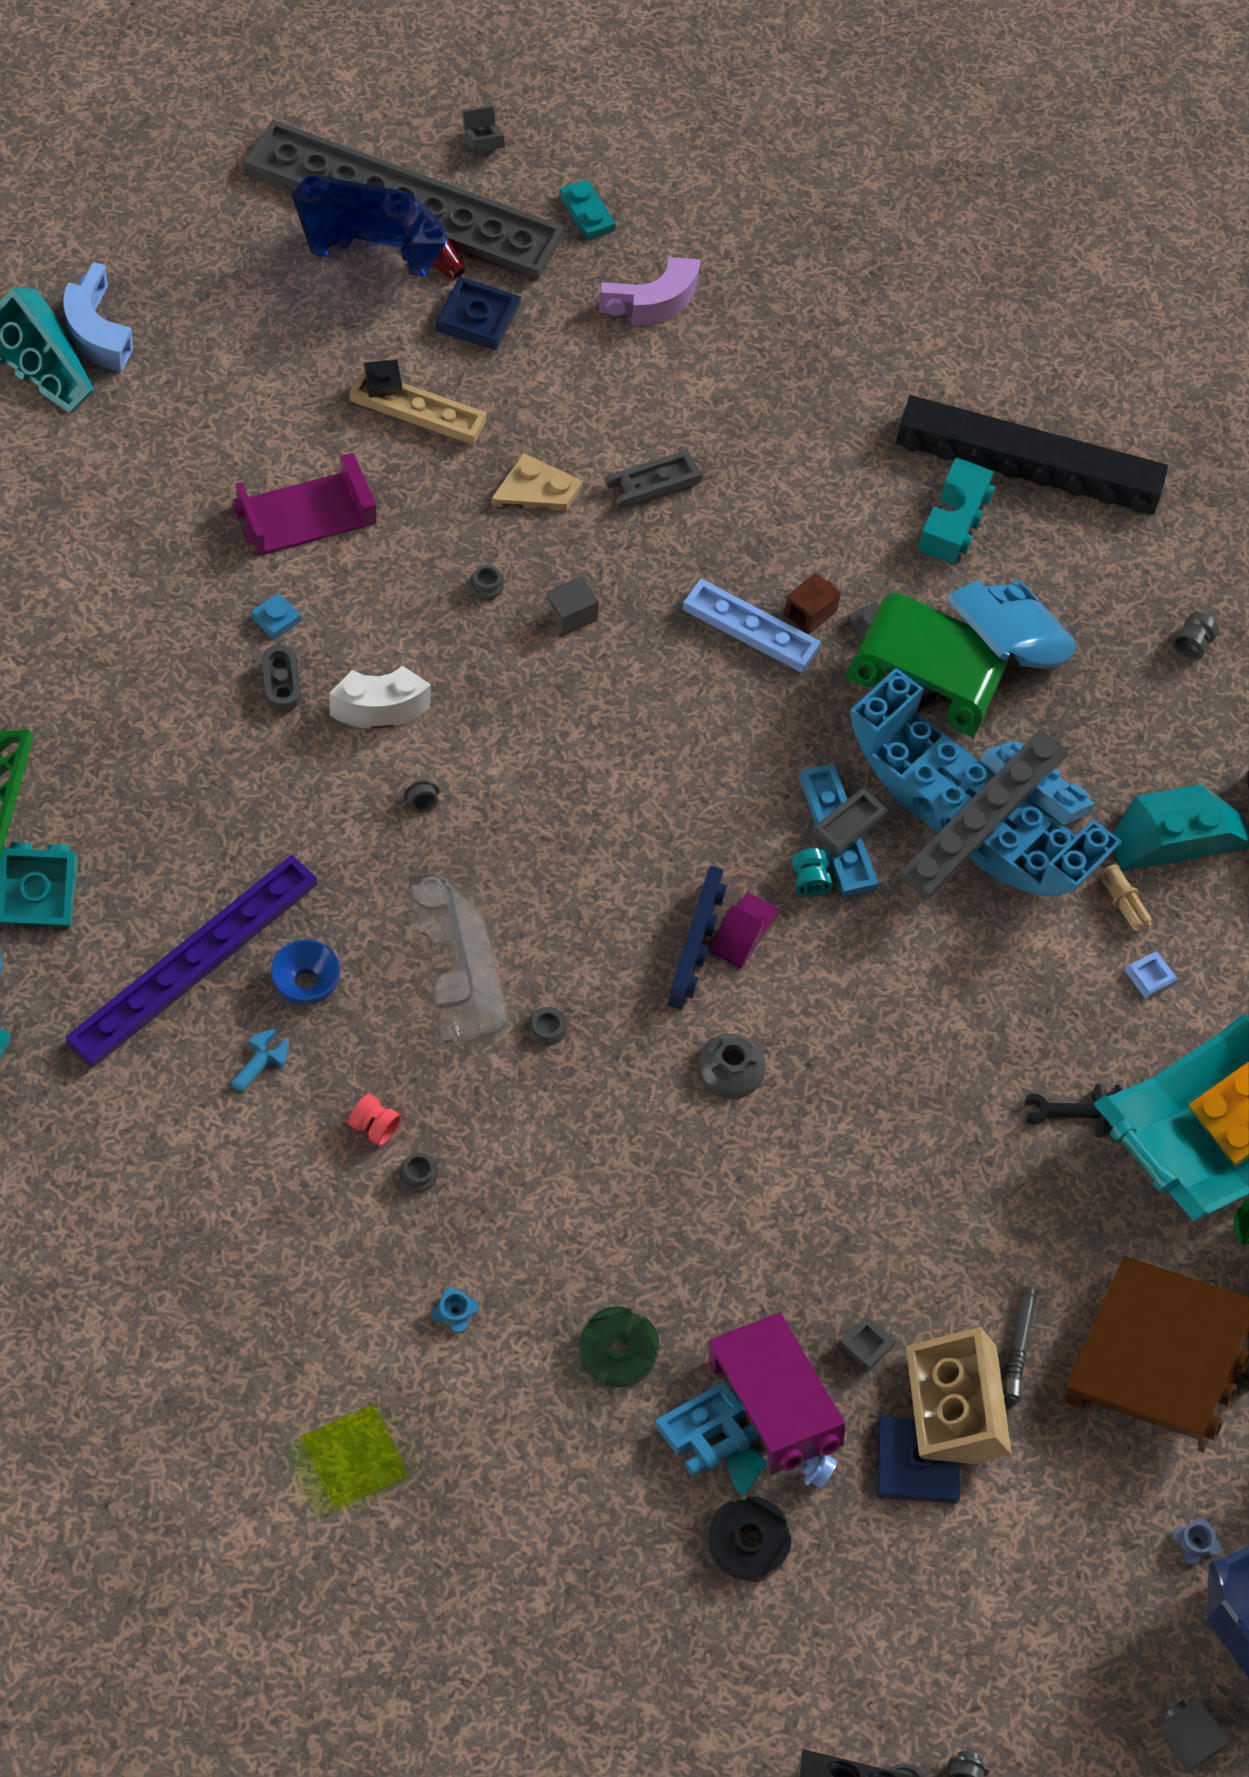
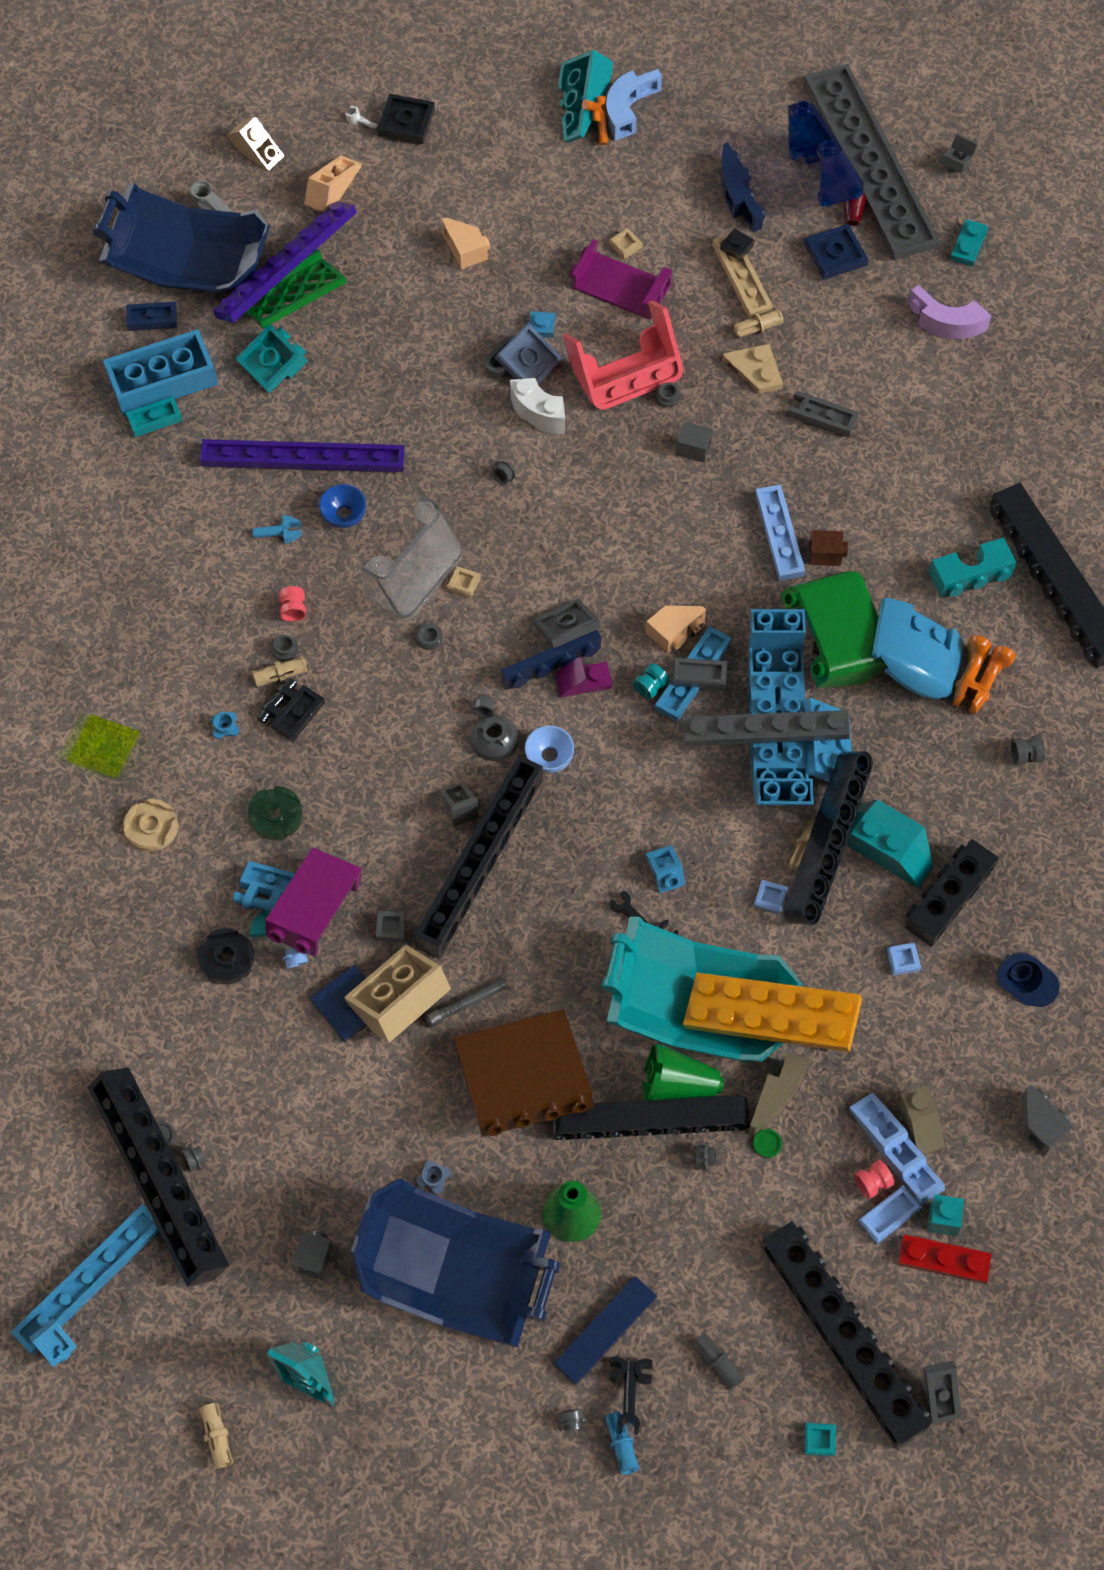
camera: 55 degrees right, 5 degrees up
(77, 347) = (599, 115): none -> orange hose
(96, 595) = (465, 242): none -> light nougat slope
(261, 467) = (625, 243): none -> tan tile
(300, 321) = (736, 189): none -> dark blue slope
(308, 657) = (528, 355): none -> sand blue tile
(431, 582) = (634, 374): none -> coral windscreen
(444, 1201) = (280, 671): none -> tan pin
(489, 441) = (758, 323): none -> tan axle
(504, 1502) = (151, 834): none -> tan tile
(514, 941) = (463, 582): none -> tan tile
(515, 1223) = (296, 714): none -> black plate
(670, 888) = (566, 623): none -> dark grey tile
(685, 1043) = (483, 705): none -> dark grey hinge
(766, 800) = (674, 624): none -> light nougat slope
(780, 1157) = (460, 803): none -> dark grey slope
(805, 1010) = (550, 738): none -> light blue piece
(871, 1192) = (478, 857): none -> black brick
(1037, 1034) = (666, 868): none -> dark azure bracket
(1093, 621) = (979, 649): none -> orange piece
(1147, 870) = (828, 838): none -> black beam

